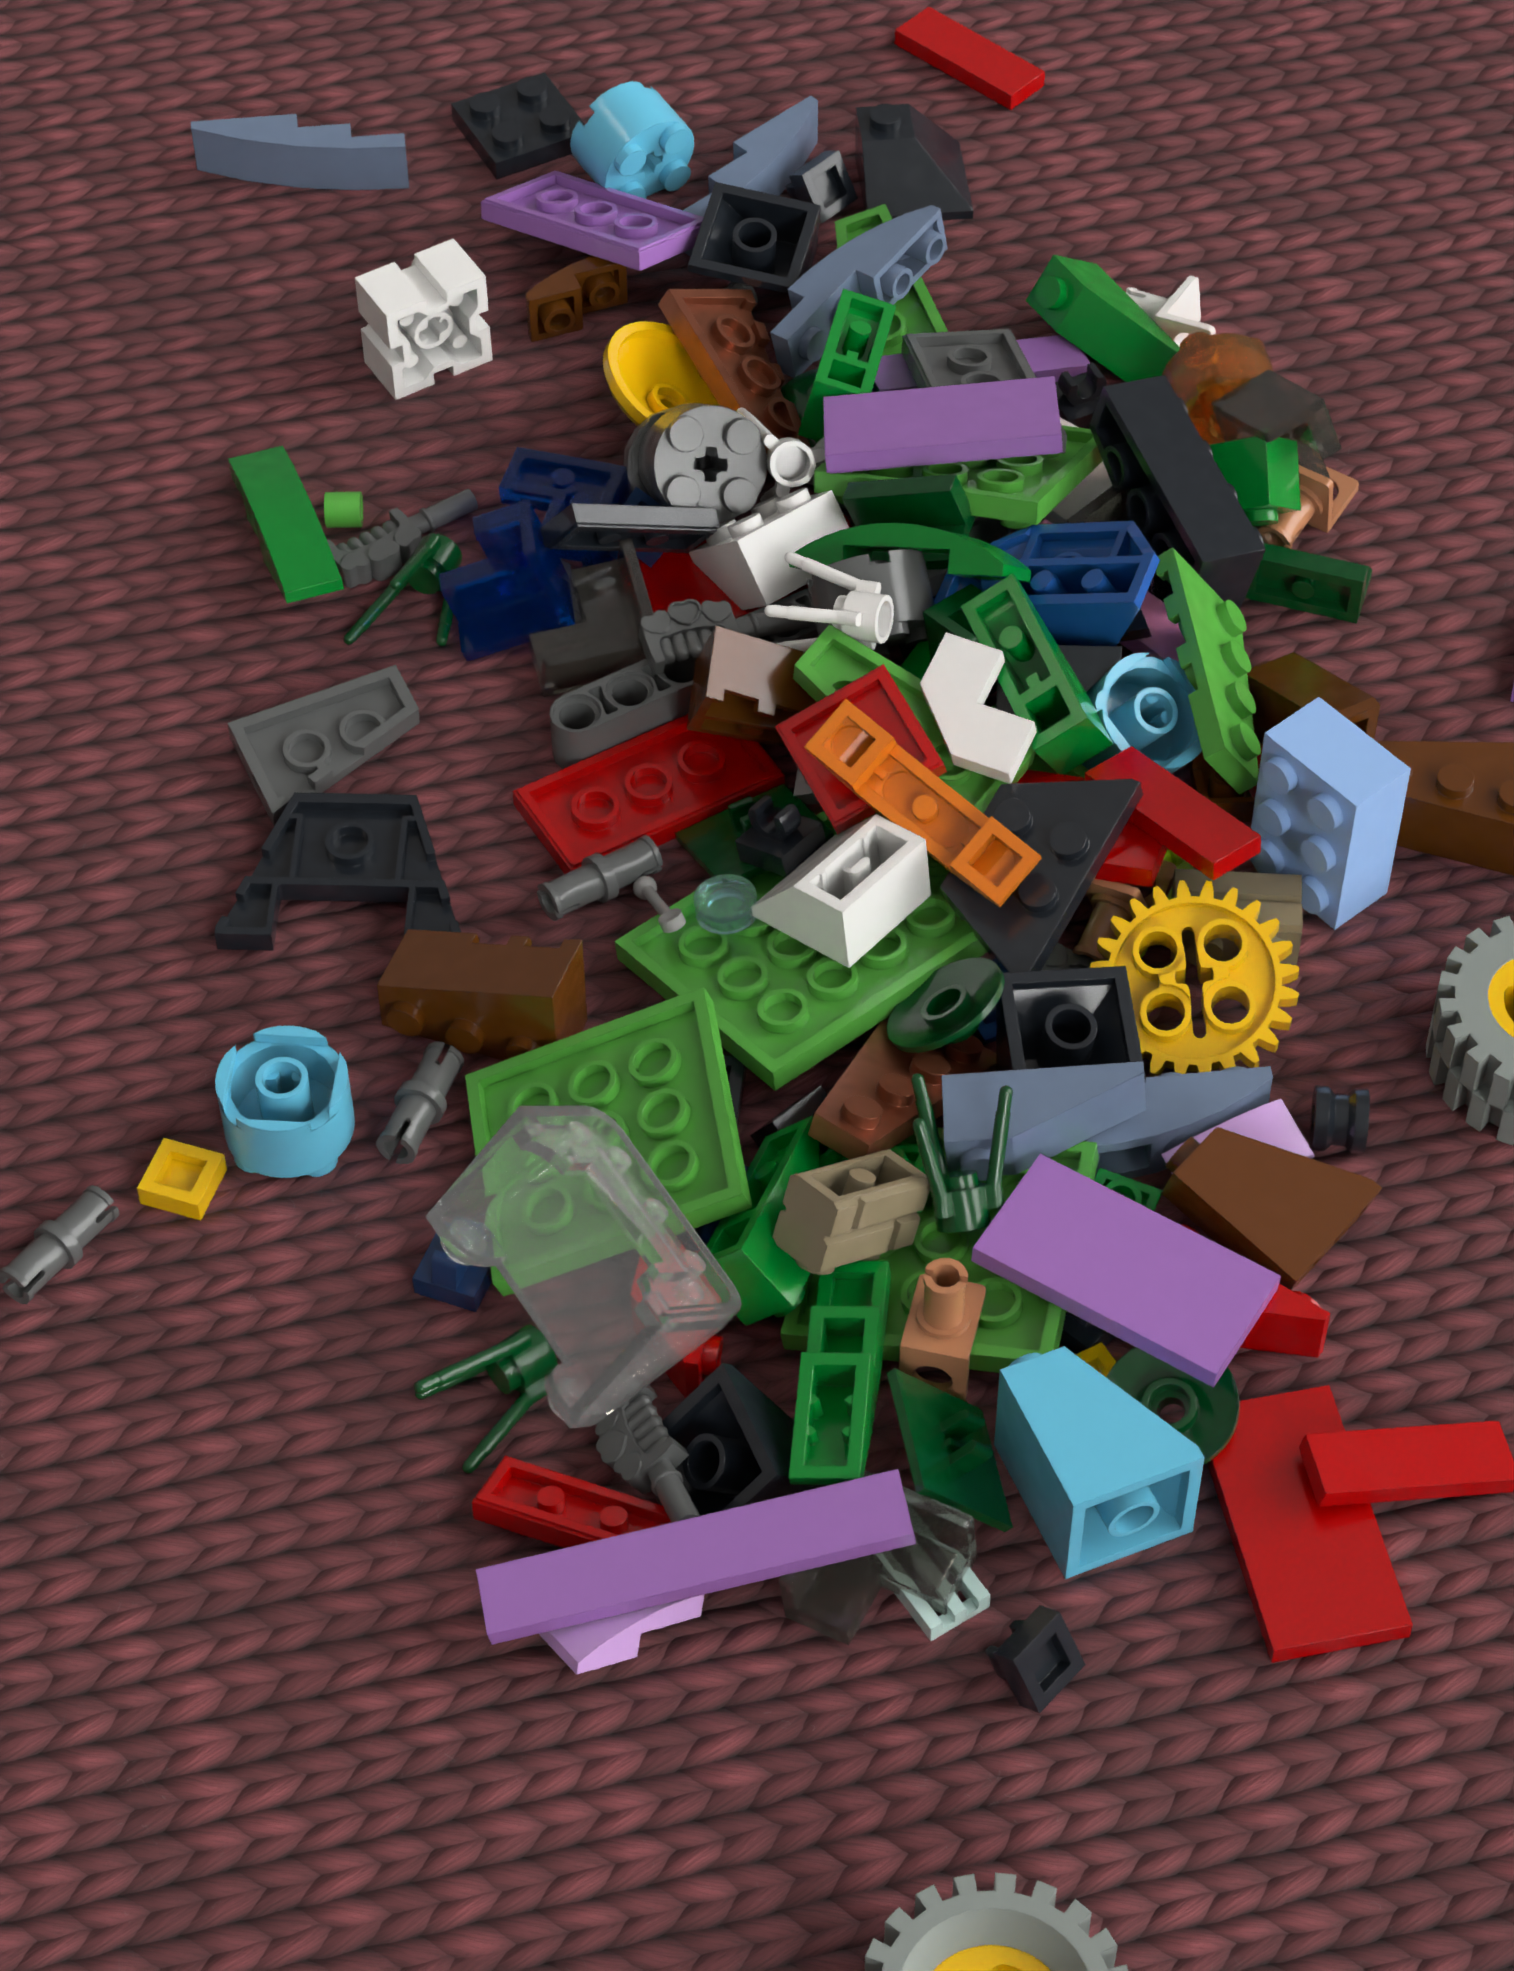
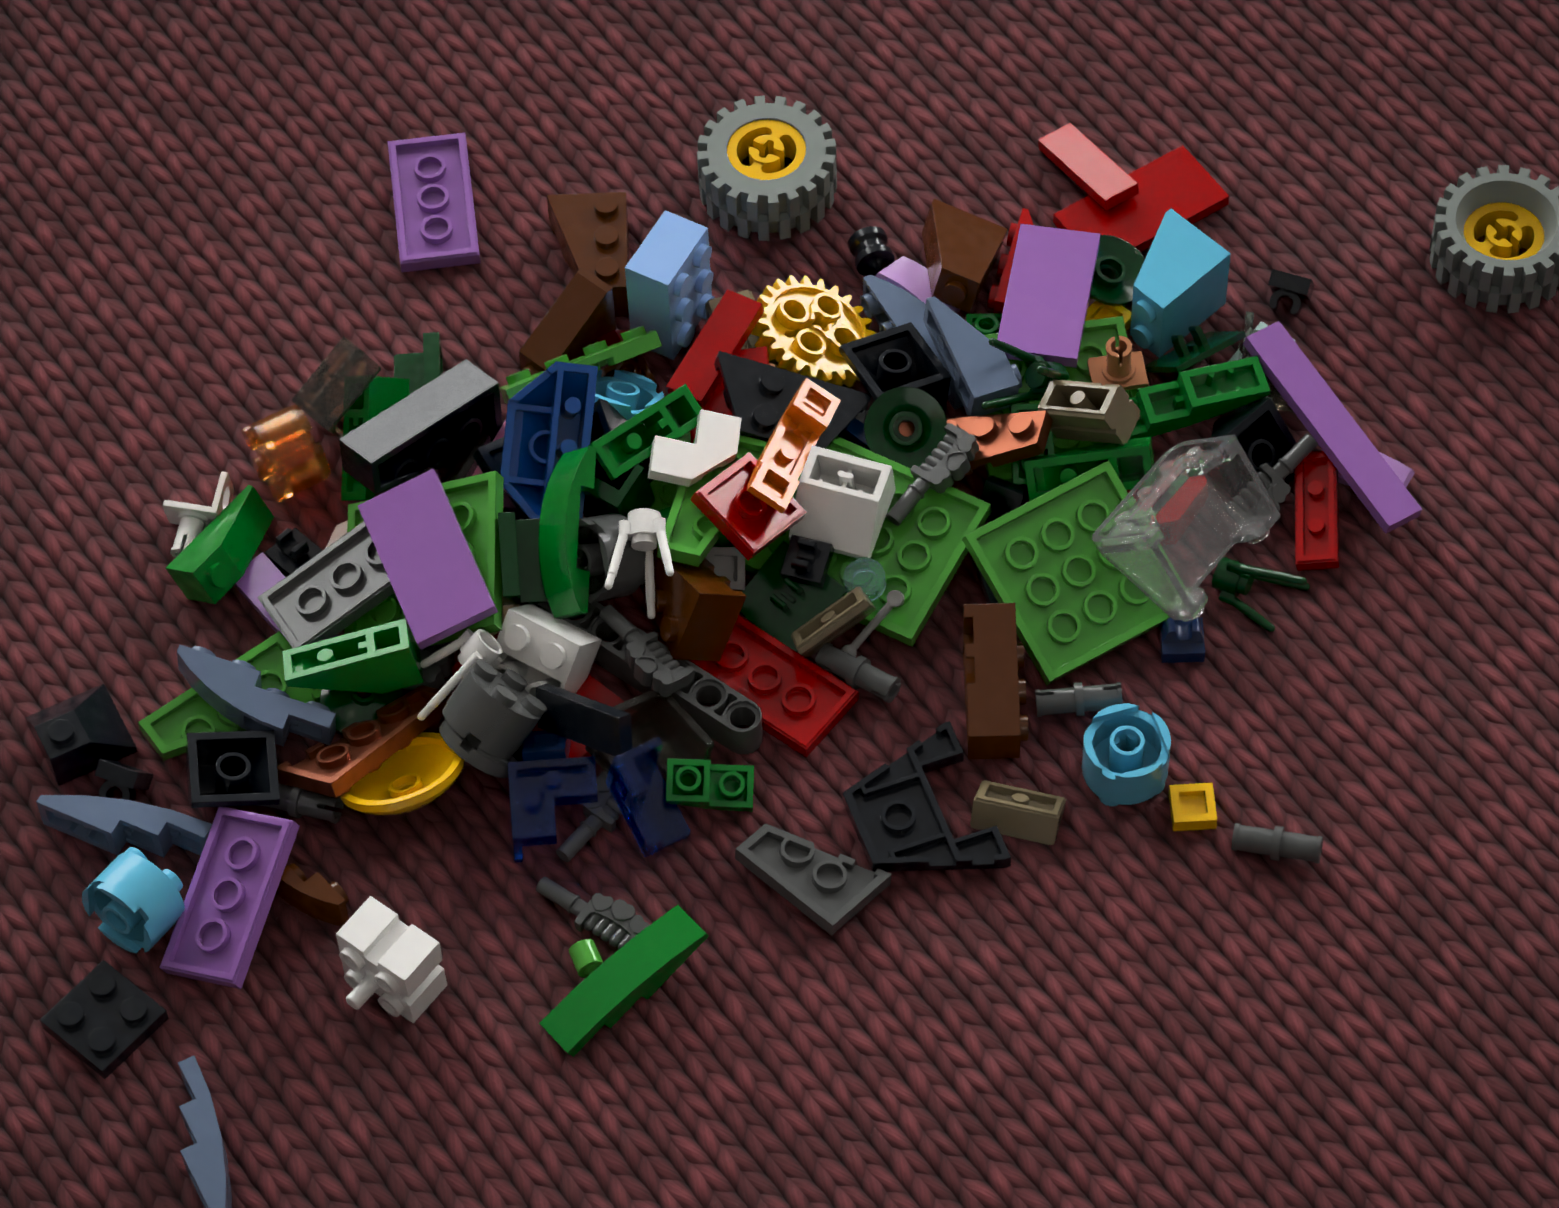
camera: 110 degrees left, 5 degrees up
(299, 983) = (1018, 812): none -> dark tan slope
(431, 557) = (626, 874): dark green plant -> none
(511, 670) = (709, 785): none -> green slope
(672, 847) = (832, 622): none -> dark tan slope
(850, 1020) = (945, 465): none -> dark grey piece

